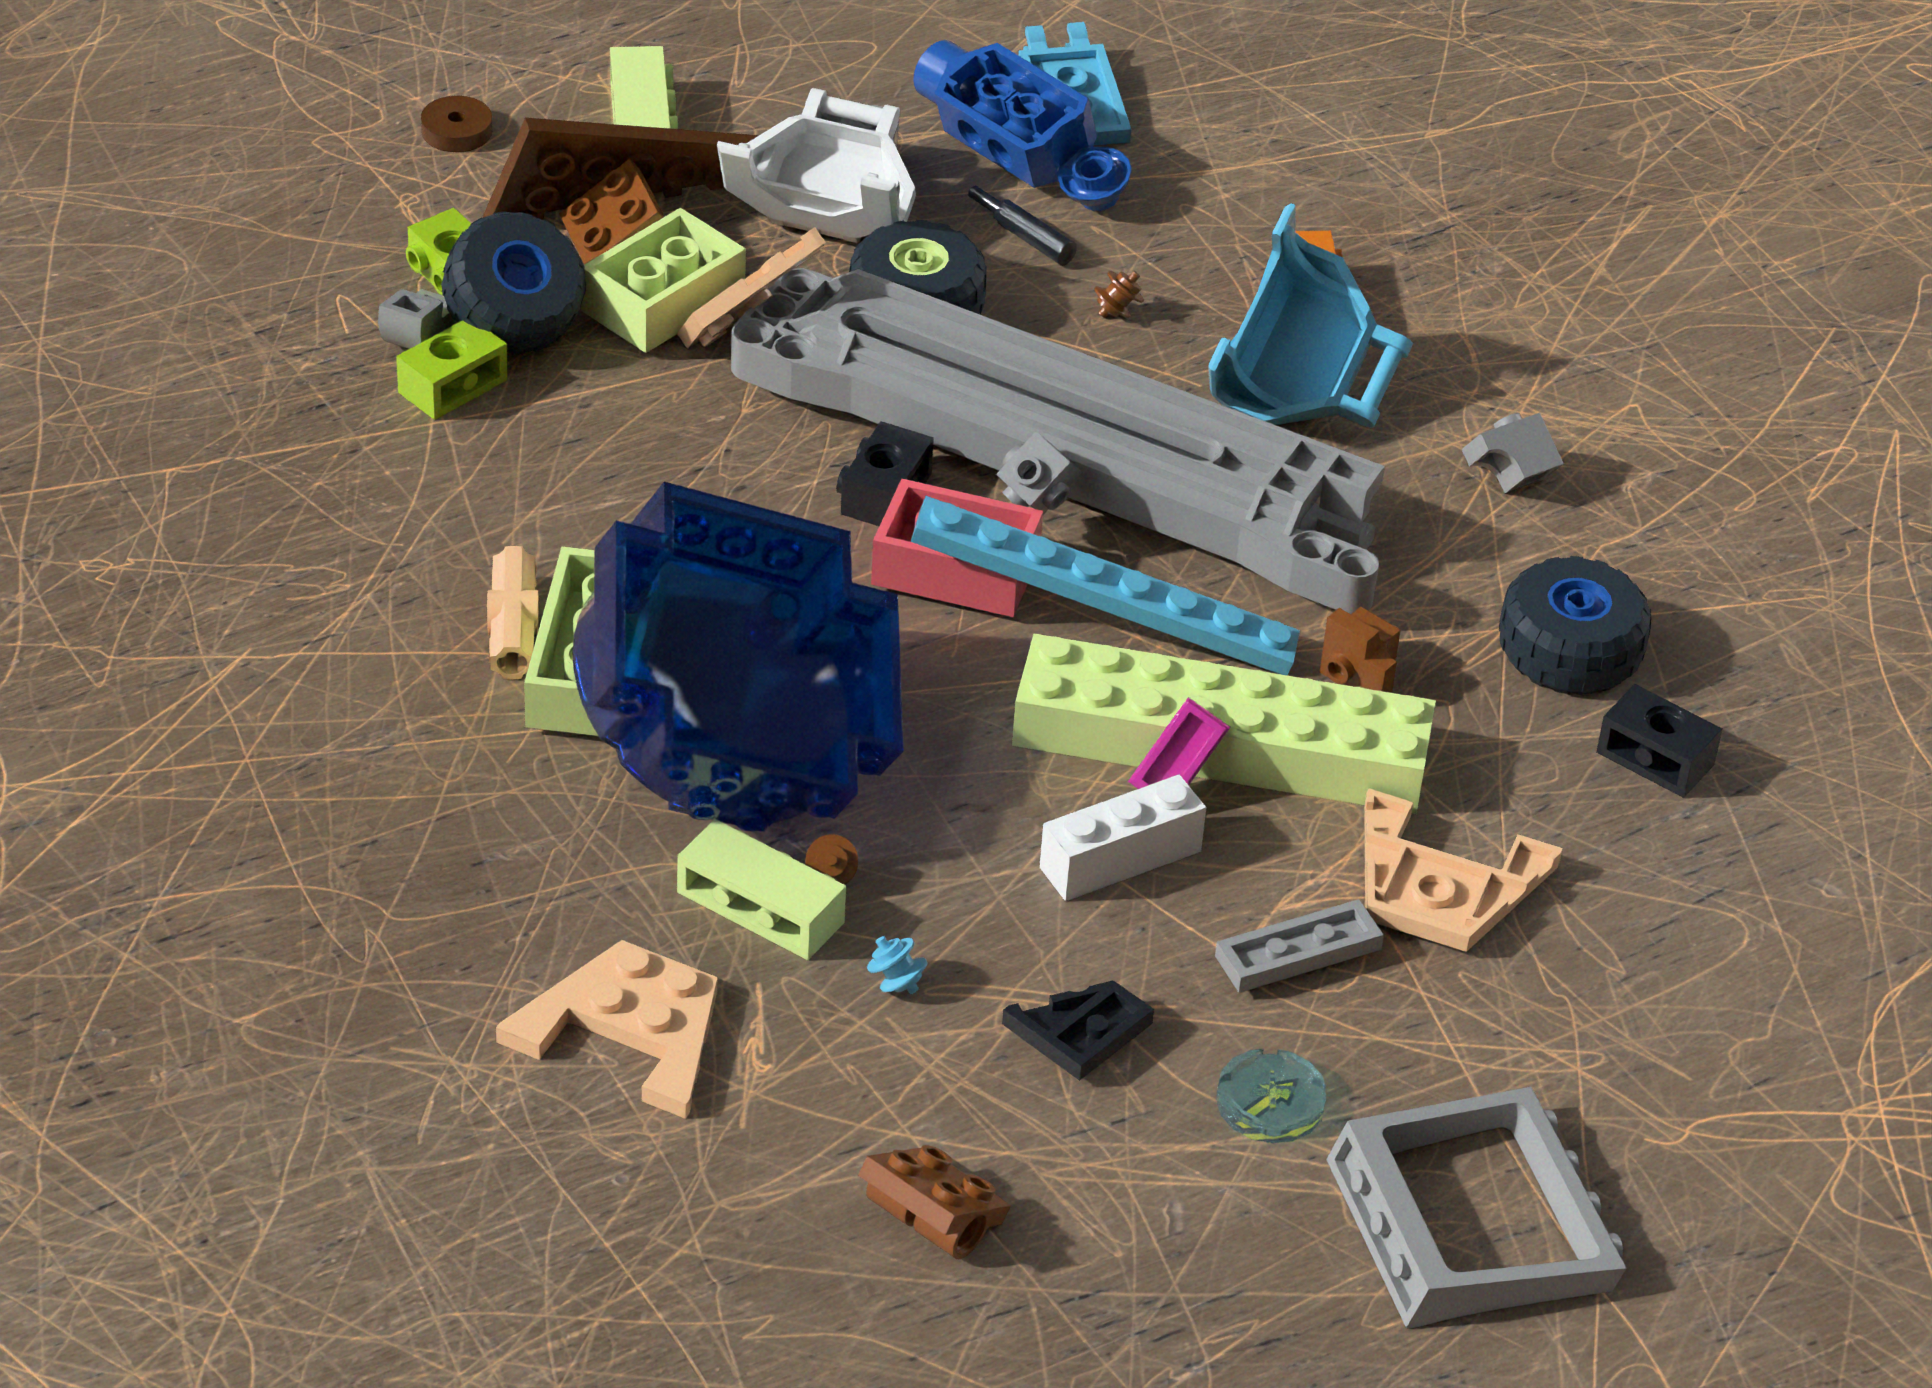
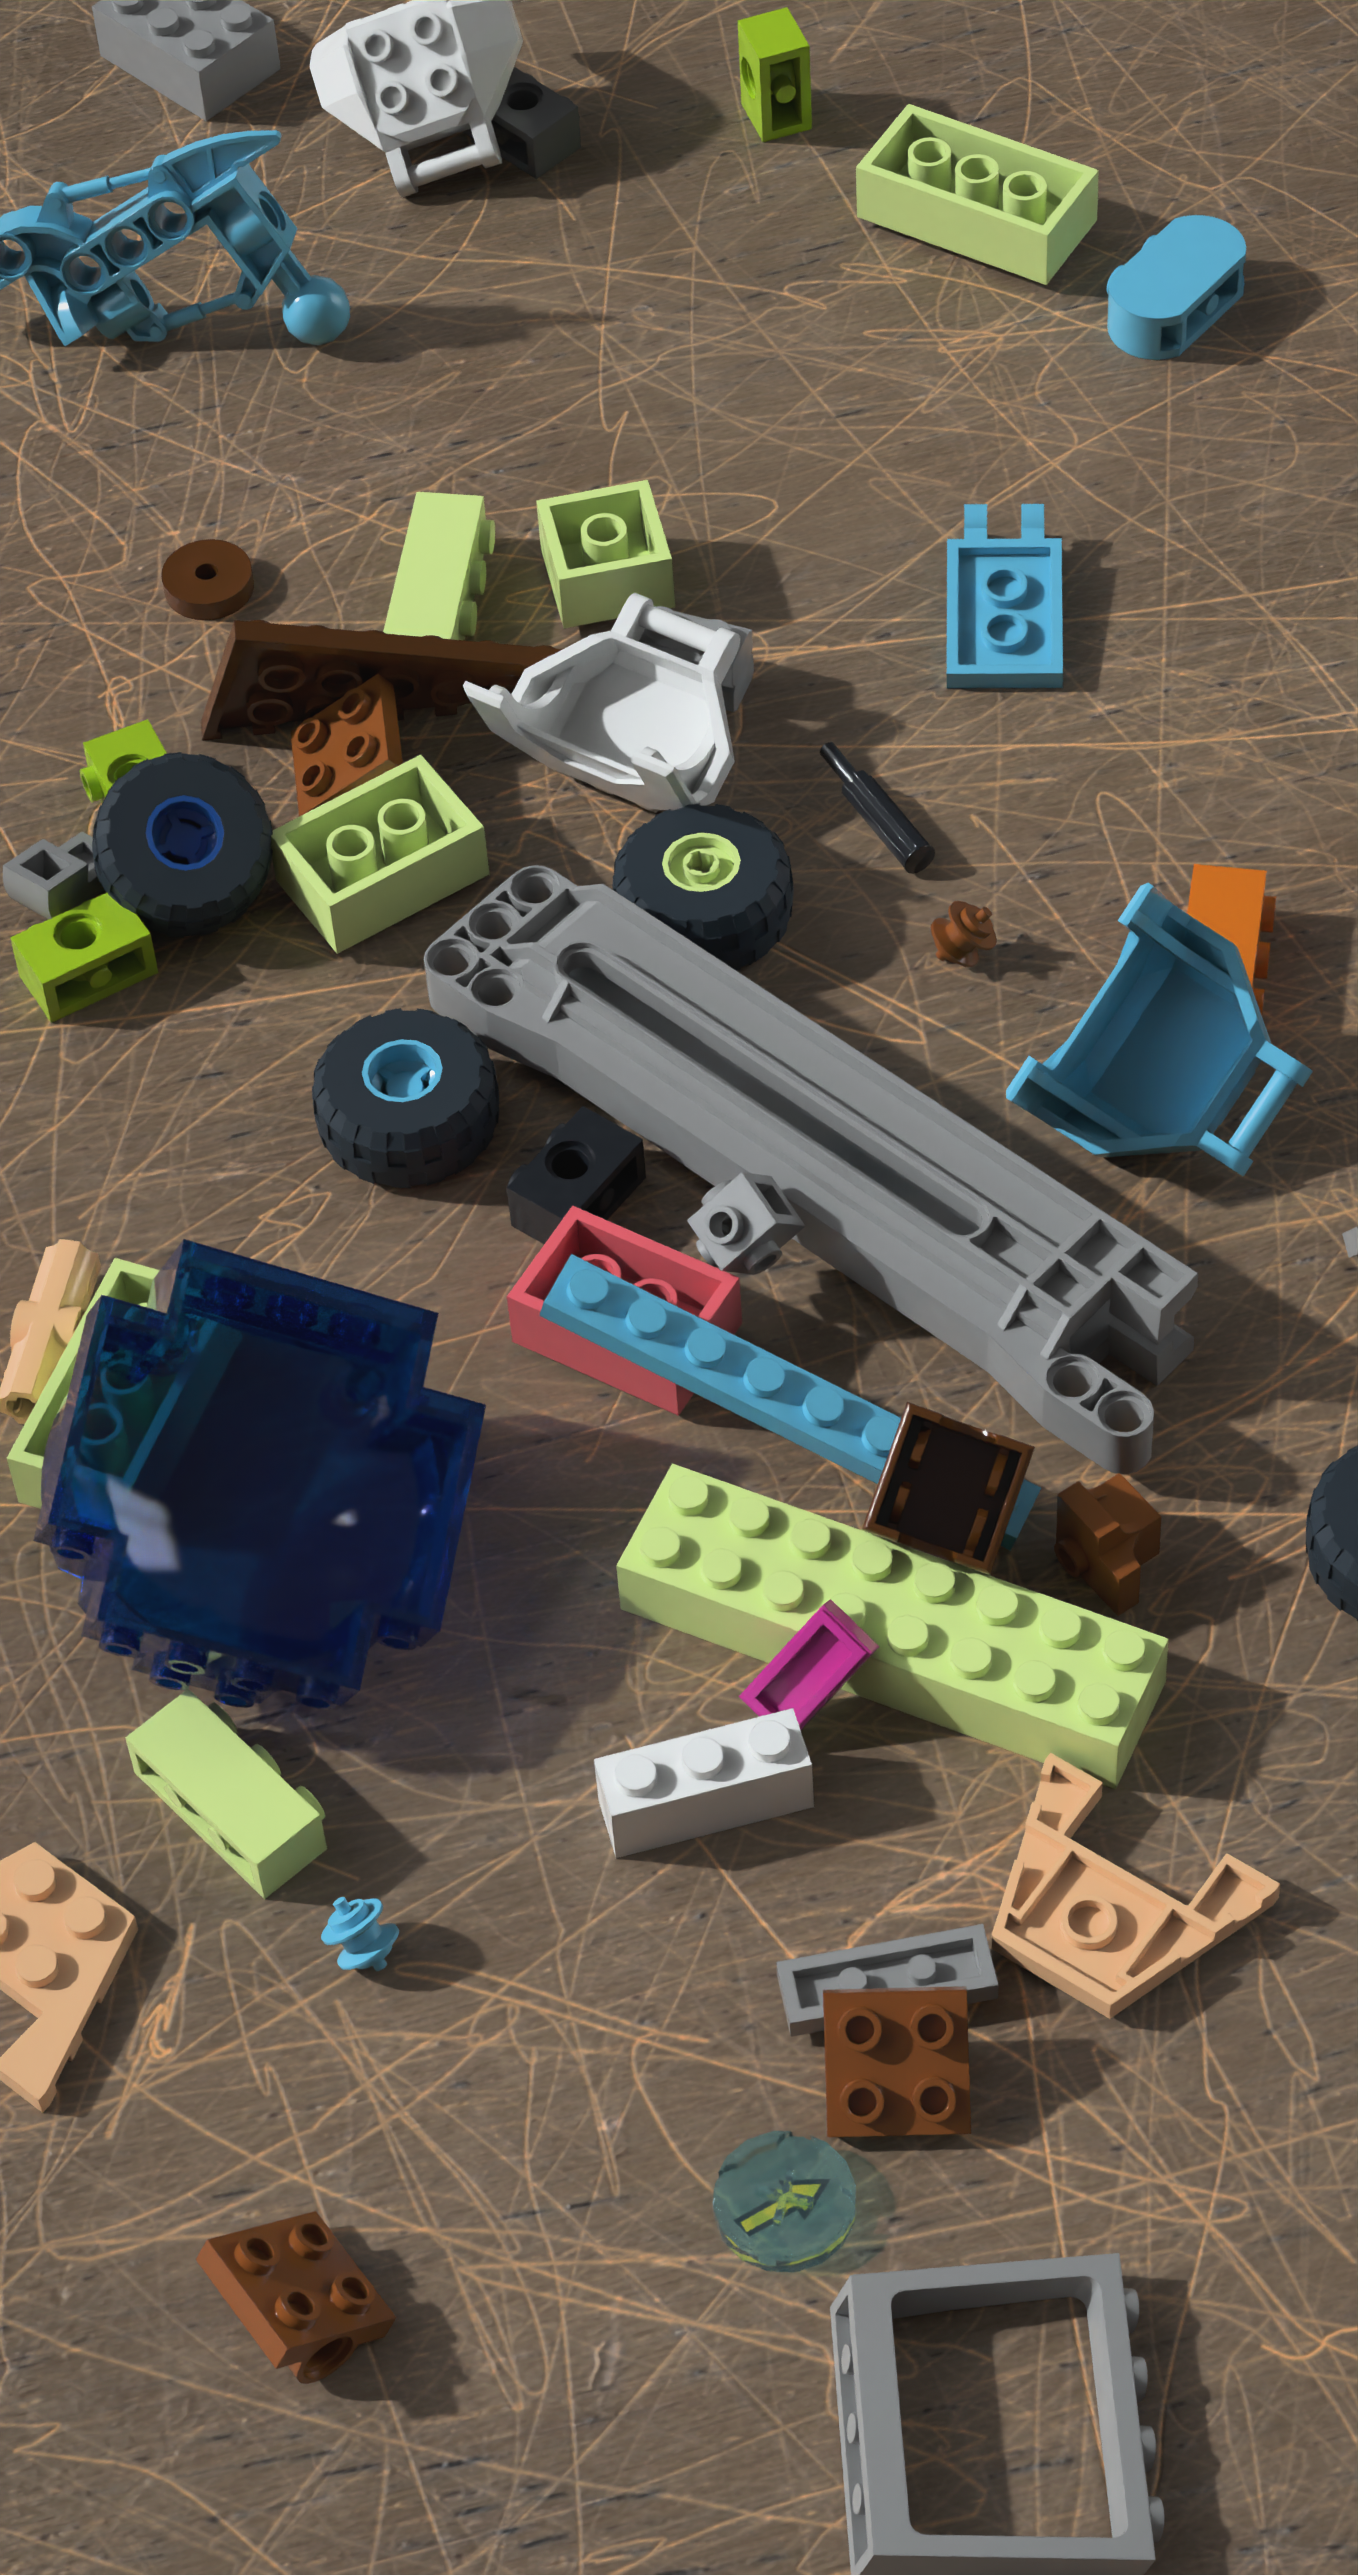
camera: 20 degrees right, 10 degrees up
(715, 316) = (419, 924): light nougat wing -> none
(739, 433) = (405, 1098): none -> black wheel
(764, 75) = (603, 550): none -> yellowish green brick
(834, 857) = (327, 1763): dark orange wheel -> none
(1021, 120) = (911, 656): blue brick -> none
(1081, 1026) = (569, 2060): black wing -> none
(1250, 616) = (948, 1488): none -> reddish brown piece
(1327, 989) = (897, 2061): none -> dark orange plate

